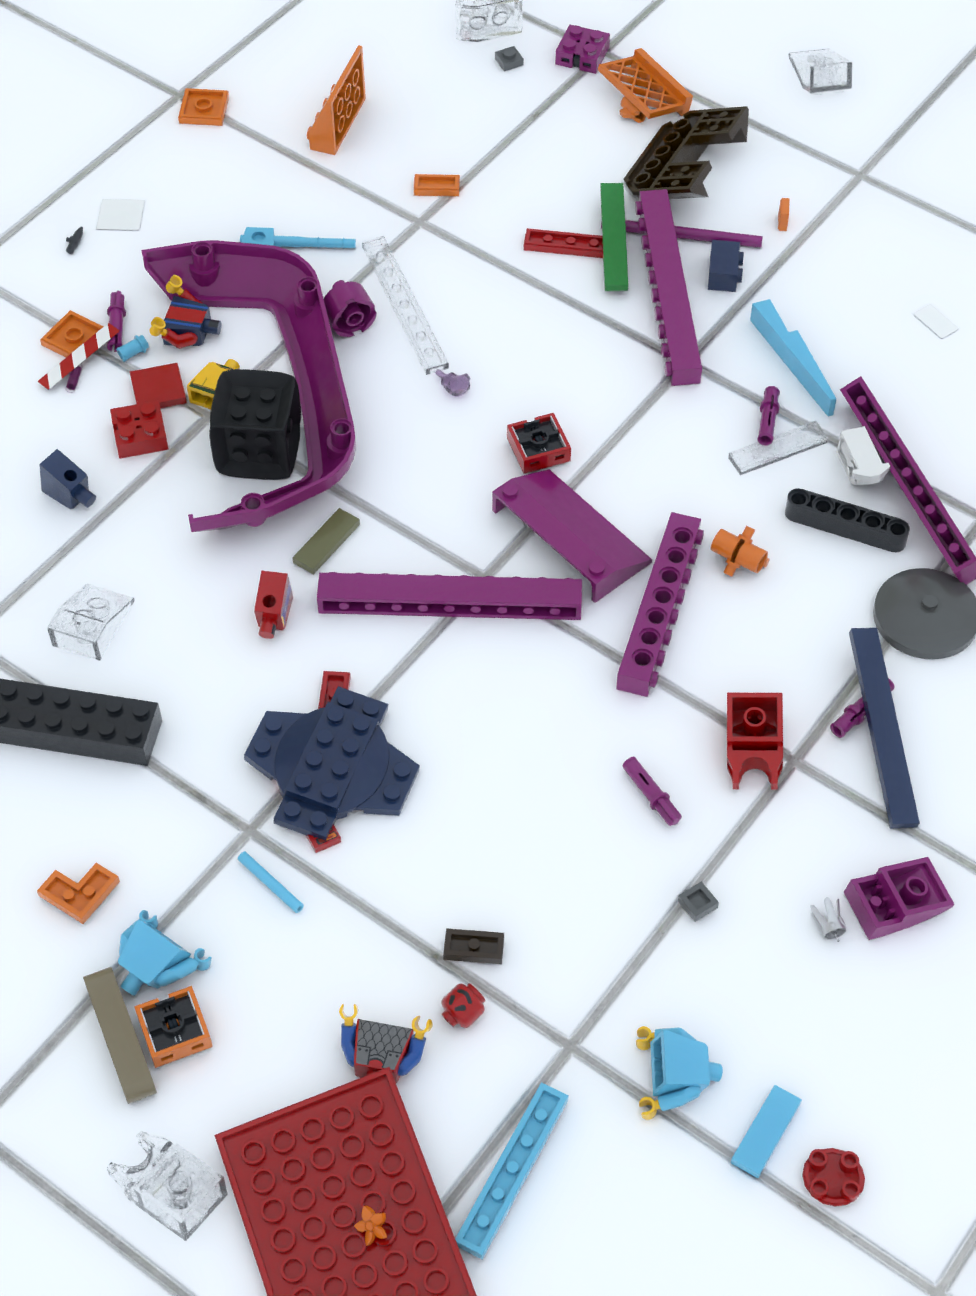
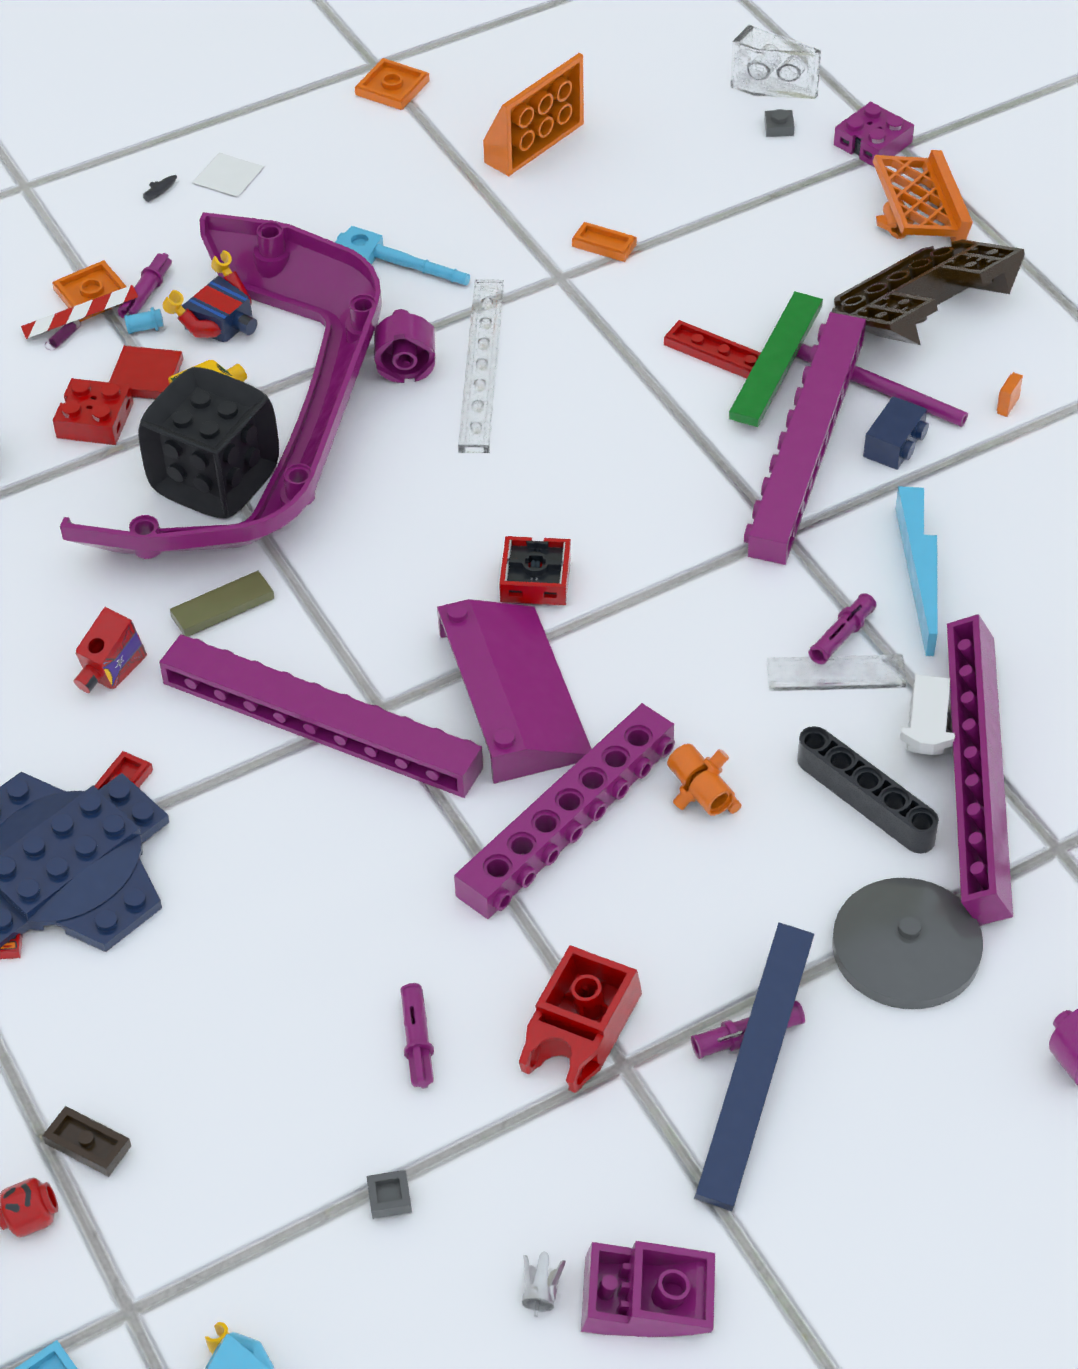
camera: 25 degrees right, 5 degrees down
(454, 384) = (481, 472): clear purple piece -> none

